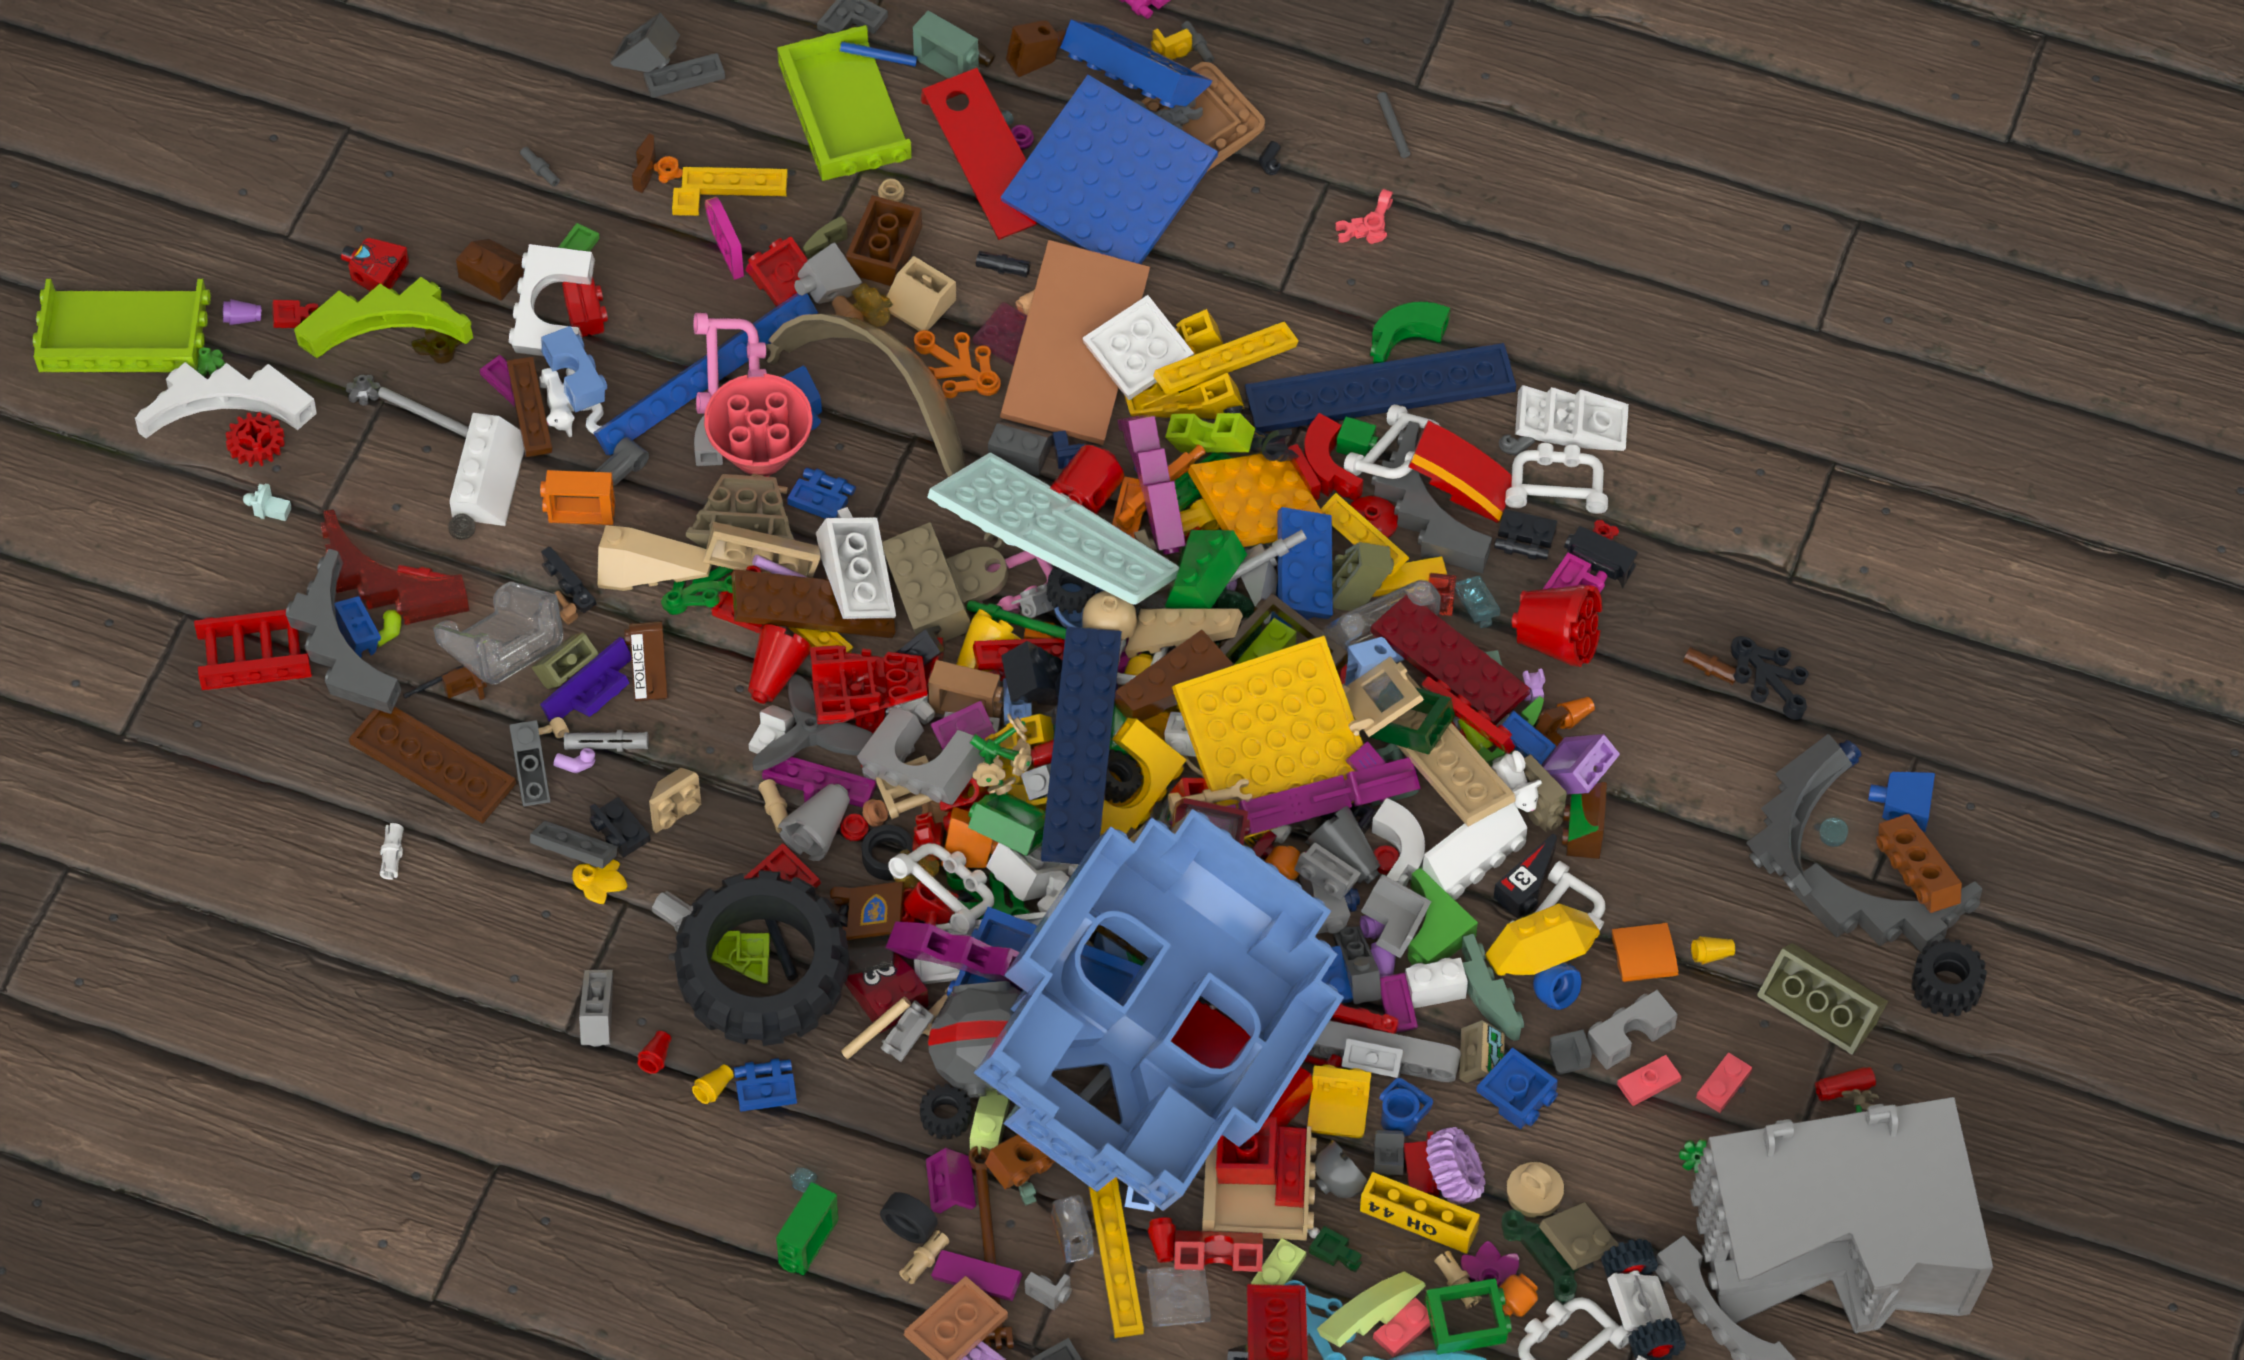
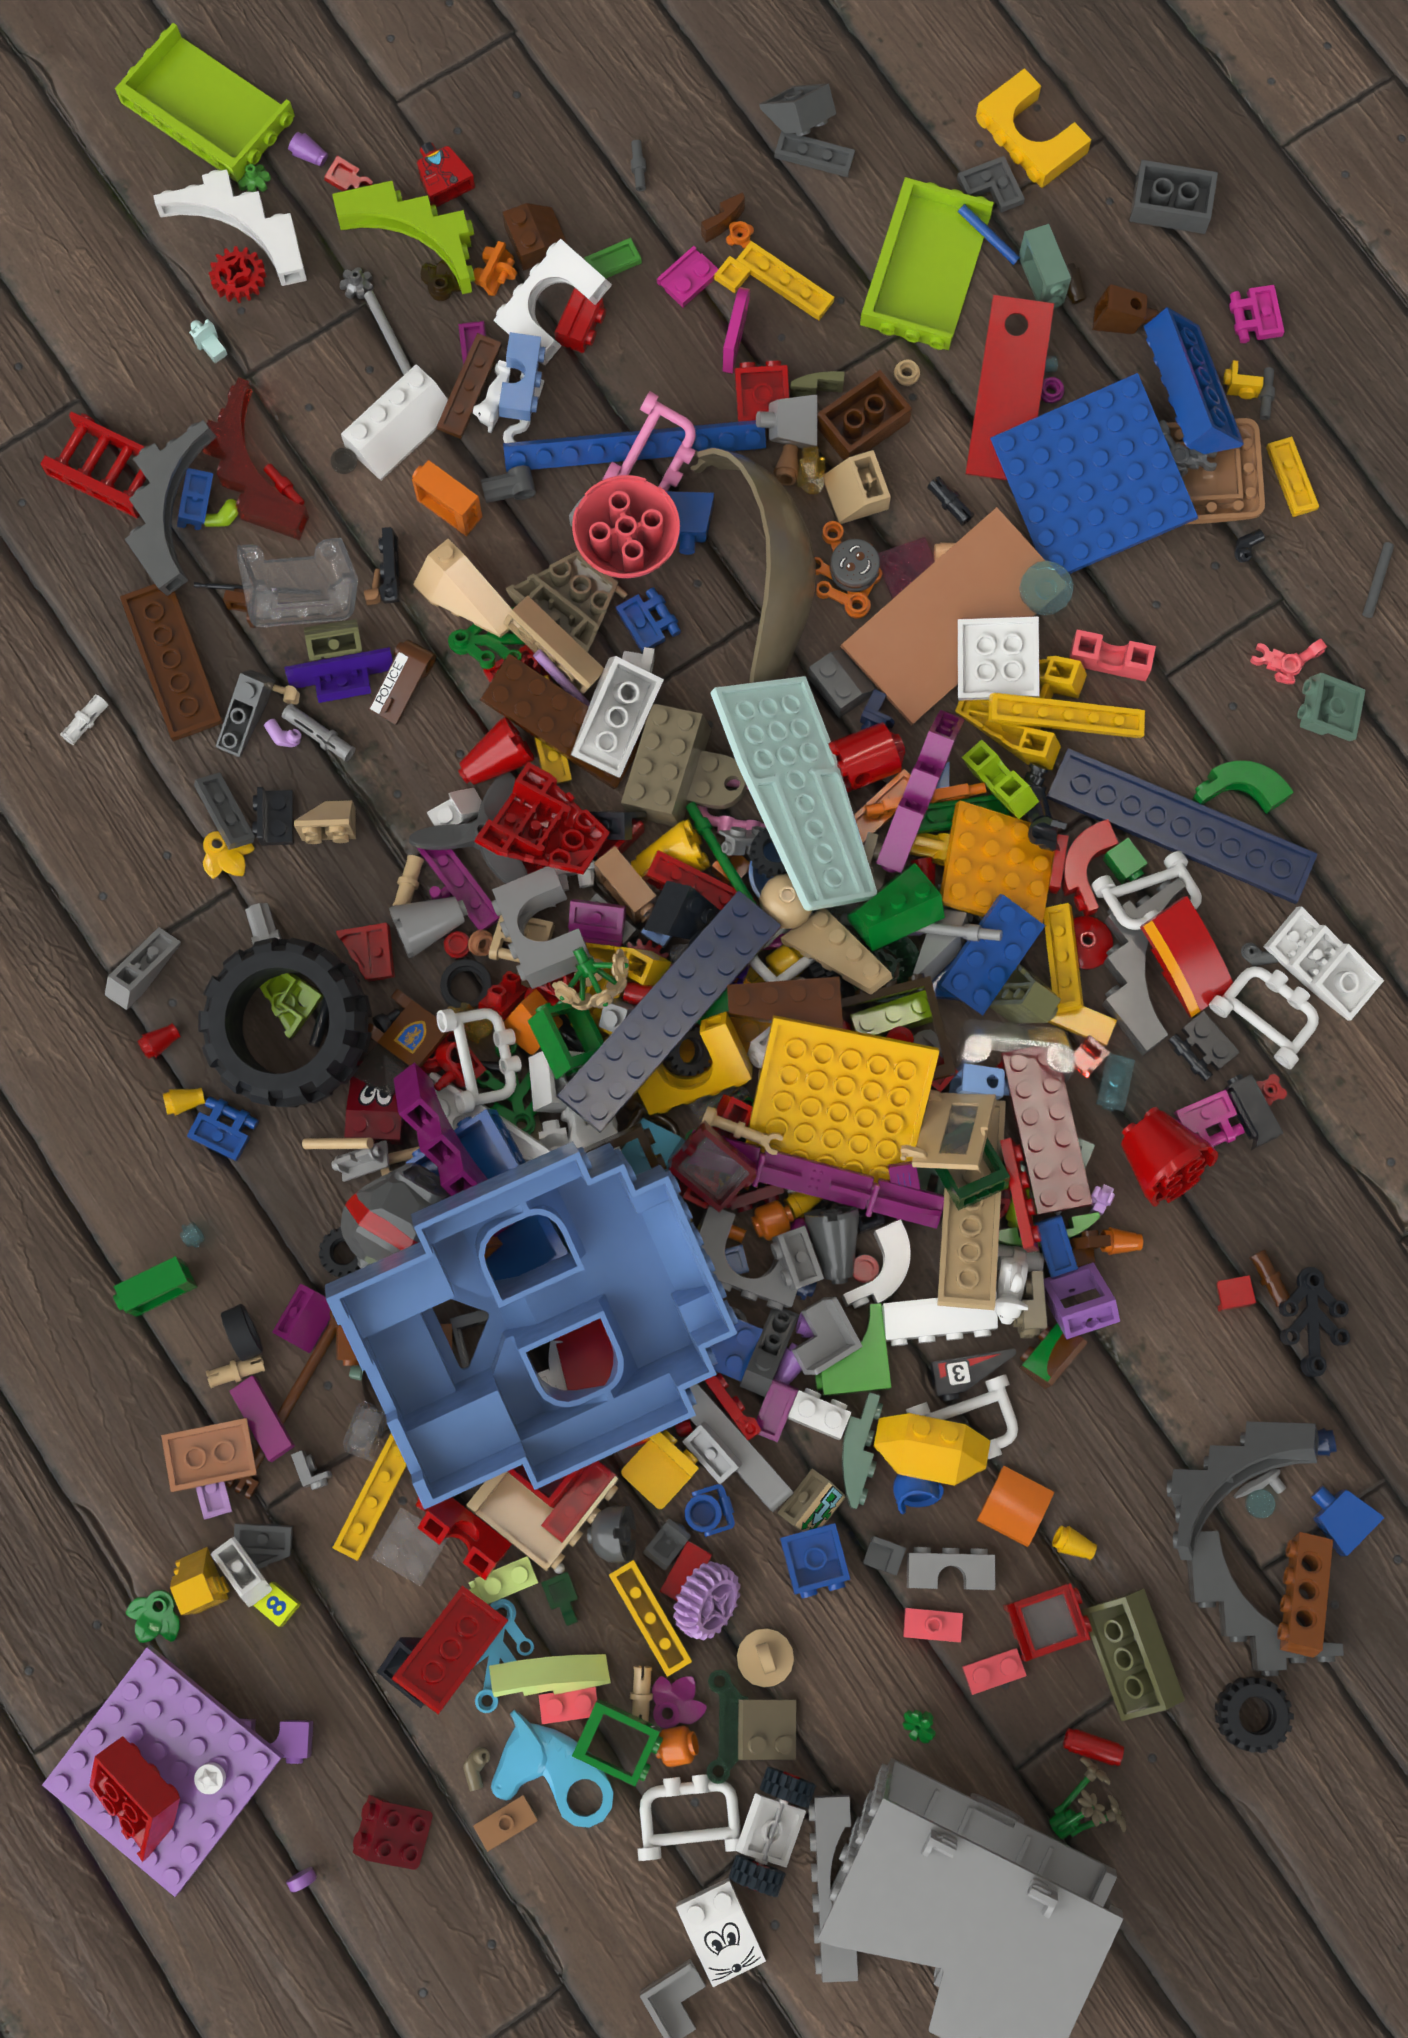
camera: 35 degrees right, 20 degrees up
(483, 308) = (497, 269): none -> orange hips
(648, 225) = (687, 276): none -> dark pink plate
(963, 352) = (854, 565): none -> dark grey head
(1134, 276) = (1046, 588): none -> clear light blue tile
(1244, 293) = (1126, 661): none -> coral arch
(1266, 90) = (1292, 476): none -> yellow tile
(1297, 835) = (801, 1203): none -> yellow cone
(1430, 233) = (1331, 706): none -> sand green plate
(1694, 690) = (1235, 1293): none -> red panel
(1738, 1015) = (1048, 1621): none -> window
(1821, 815) = (1258, 1483): none -> light grey bar

